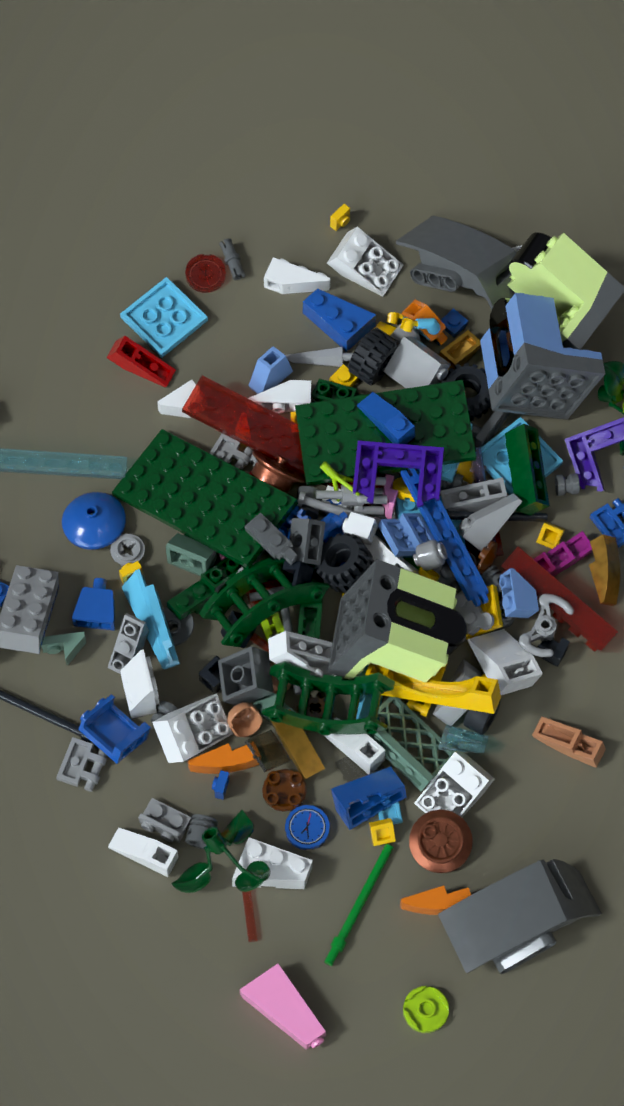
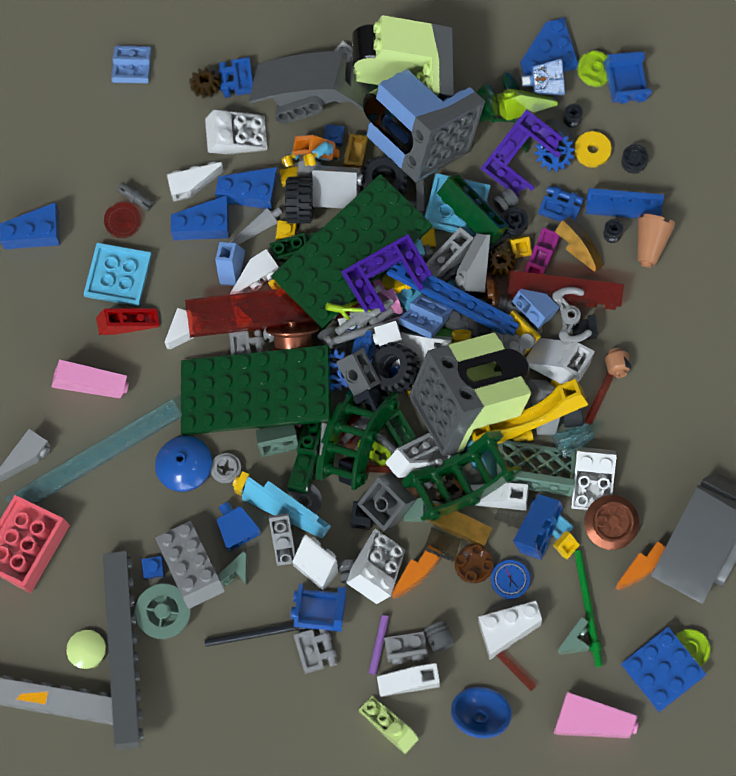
camera: 30 degrees left, 5 degrees up
(66, 390) = (88, 380): none -> bright pink slope
(95, 877) = (389, 724): none -> yellowish green slope
(119, 228) = (32, 229): none -> blue wedge
(142, 801) = (378, 644): none -> medium lavender bar
(185, 925) = (481, 712): none -> blue dish
(220, 784) = (426, 593): blue plate -> none
(236, 832) = (463, 619): dark green plant -> none
(244, 719) = (408, 533): nougat hair -> none
(271, 538) = (333, 387): dark grey hinge -> none
(274, 319) = (202, 221): none -> blue wedge
(317, 923) = (572, 643): none -> sand green slope
(318, 143) = (131, 64): none -> medium blue slope
(340, 217) = (192, 110): yellow plate -> none
(371, 200) = (210, 83): none -> dark brown gear
(385, 1009) = (663, 669): none -> blue plate
(387, 419) = (349, 240): blue slope -> none
(409, 217) = (242, 77): none -> blue plate
(430, 555) = (454, 320): light grey head -> none
(478, 467) = (436, 233): pin -> none
(514, 532) = (503, 268): none -> dark brown gear
(517, 722) = (599, 398): none -> clear red bar
(559, 701) = (618, 362): none -> nougat head
(561, 509) = (517, 221): none -> black wheel
(569, 741) = (646, 387): nougat slope -> none

